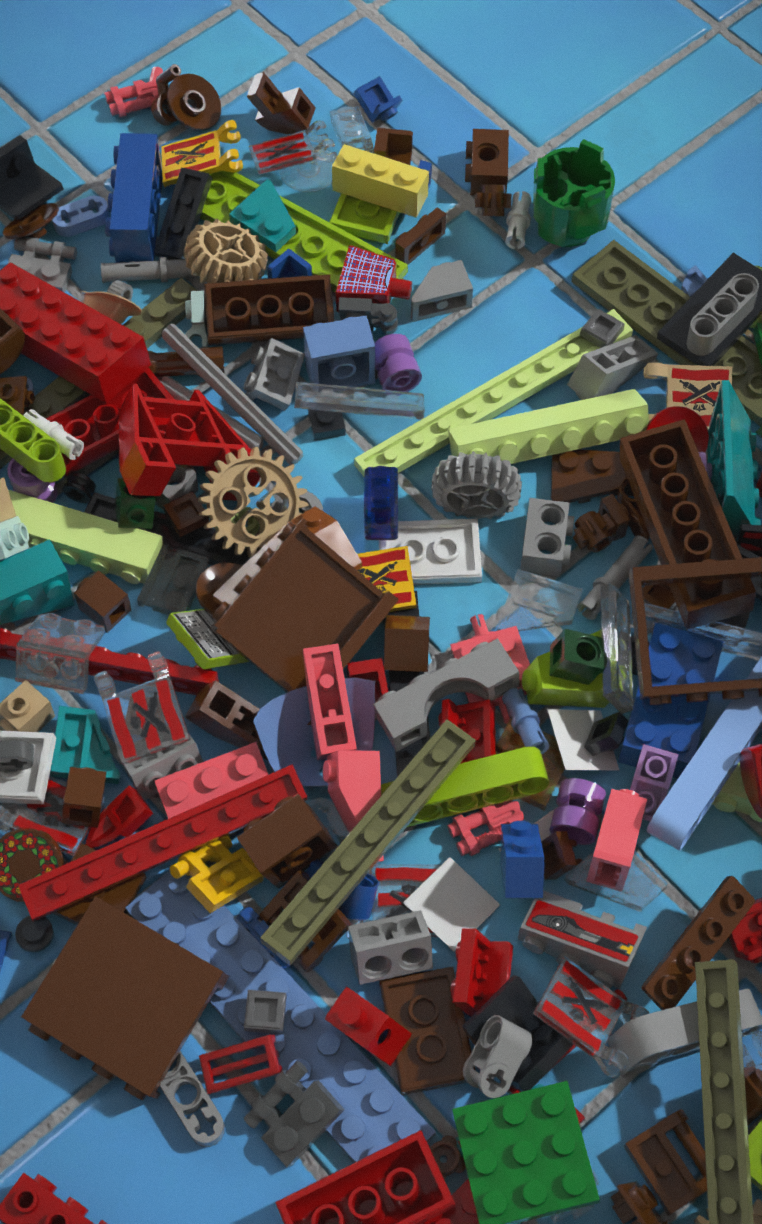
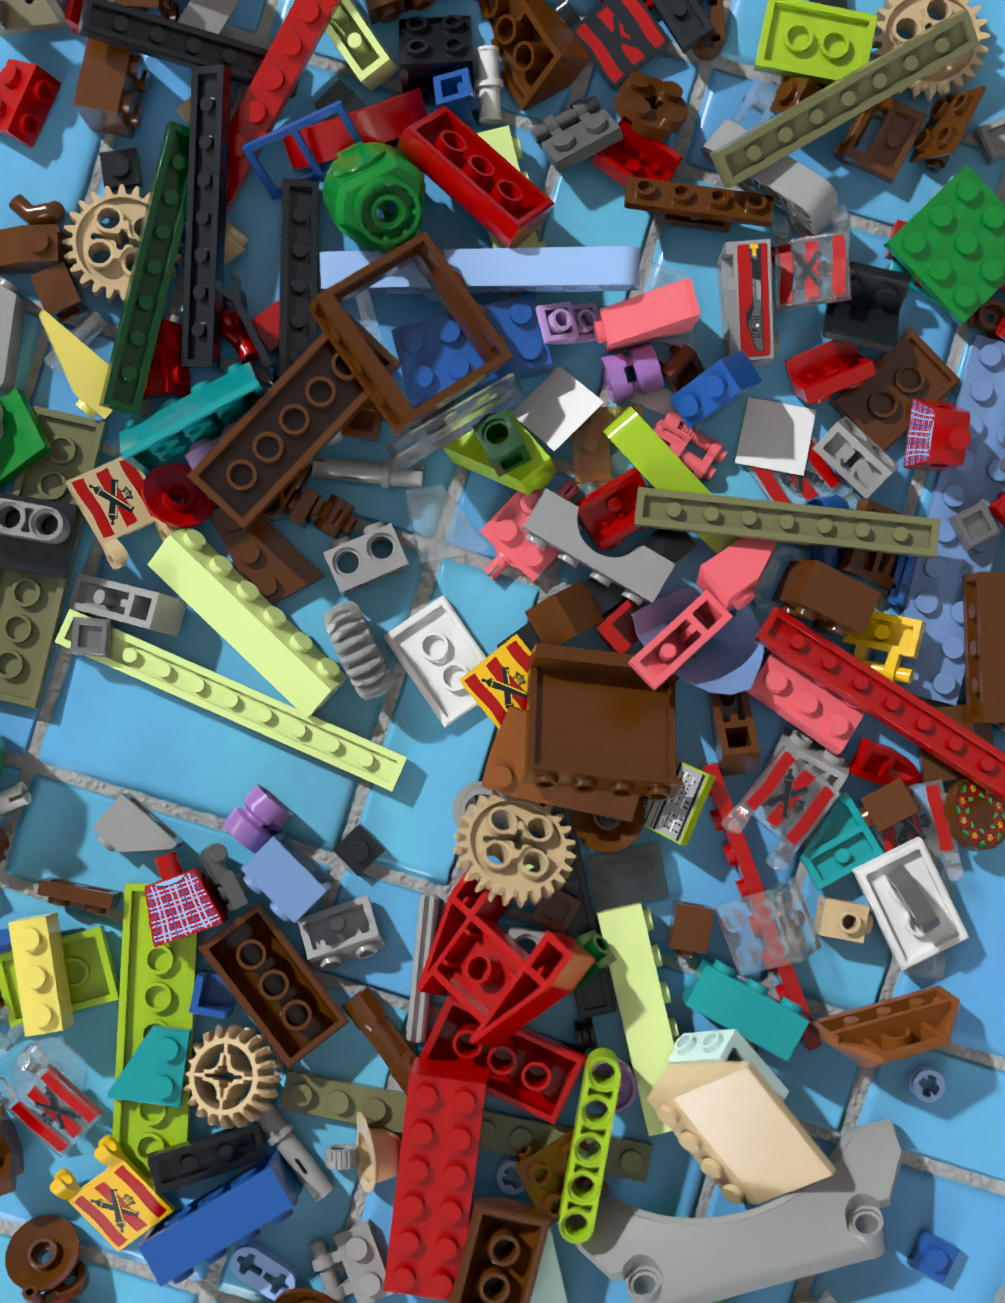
camera: 120 degrees left, 25 degrees up
(67, 443) = (565, 1091): white pin -> none
(196, 311) = (317, 1060): light aqua plate -> none
(232, 394) = (395, 958): light grey axle -> none
(359, 400) = (322, 828): clear tile -> none
(381, 503) = (431, 730): clear blue brick -> none
(497, 1054) = (897, 310): light grey piece -> none
(524, 720) = (579, 463): medium blue pin -> none
(606, 734) = (543, 387): black plate -> none

